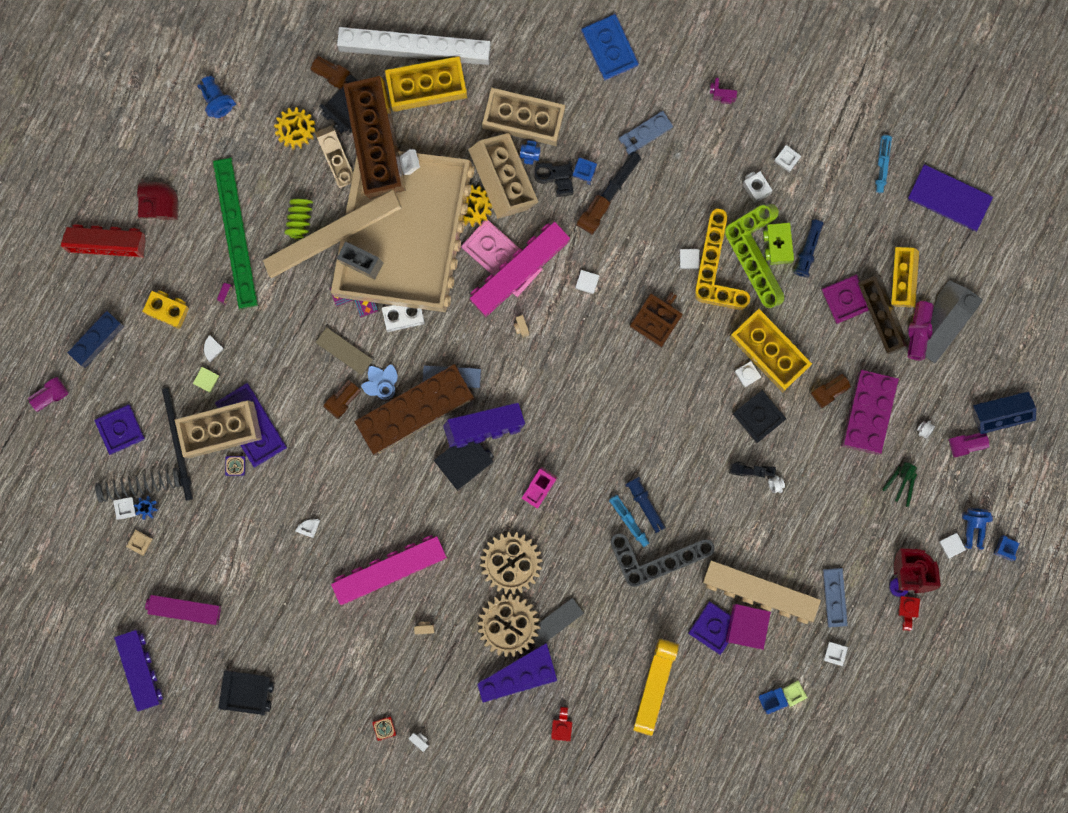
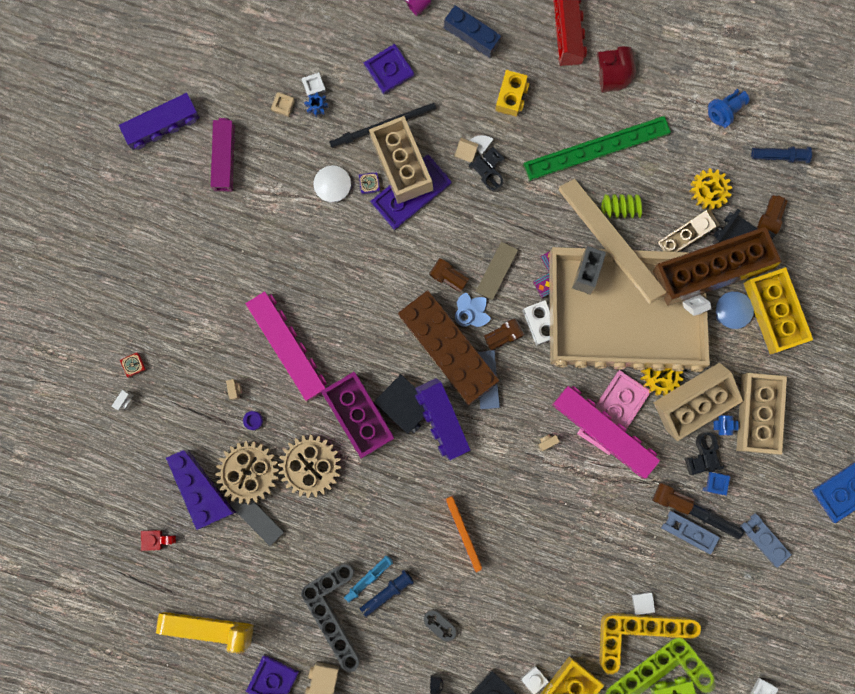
camera: 80 degrees right, 0 degrees up
(99, 493) = (350, 127): dark grey piece -> none
(206, 379) = (449, 142): yellowish green tile -> none
(217, 363) = (466, 150): none -> tan tile
(224, 293) = (535, 147): magenta tile -> none
(230, 503) = (332, 184): none -> white dish
(236, 346) = (488, 165): none -> black piece
(246, 693) = (151, 226): black panel -> none
(271, 44) = (791, 154): none -> dark blue pin
(308, 527) = (319, 262): white tile -> none
(408, 350) = (506, 333): none -> reddish brown piece
(413, 45) = (814, 292): white brick -> none
(418, 125) = (734, 310): none -> medium blue dish
(457, 614) = (252, 420): none -> dark purple tile
(468, 508) = (357, 415): none -> magenta brick
(539, 487) = (388, 484): dark pink brick -> none
(587, 282) = (603, 502): white tile -> none
(598, 421) = (463, 533): none -> orange tile
(628, 202) = (691, 533): none -> sand blue plate
(657, 319) = (576, 579): reddish brown plate -> none
(680, 454) = (442, 622): none -> dark grey beam
(723, 95) = (818, 615): magenta bracket -> none
(757, 195) = (720, 664): white brick -> none

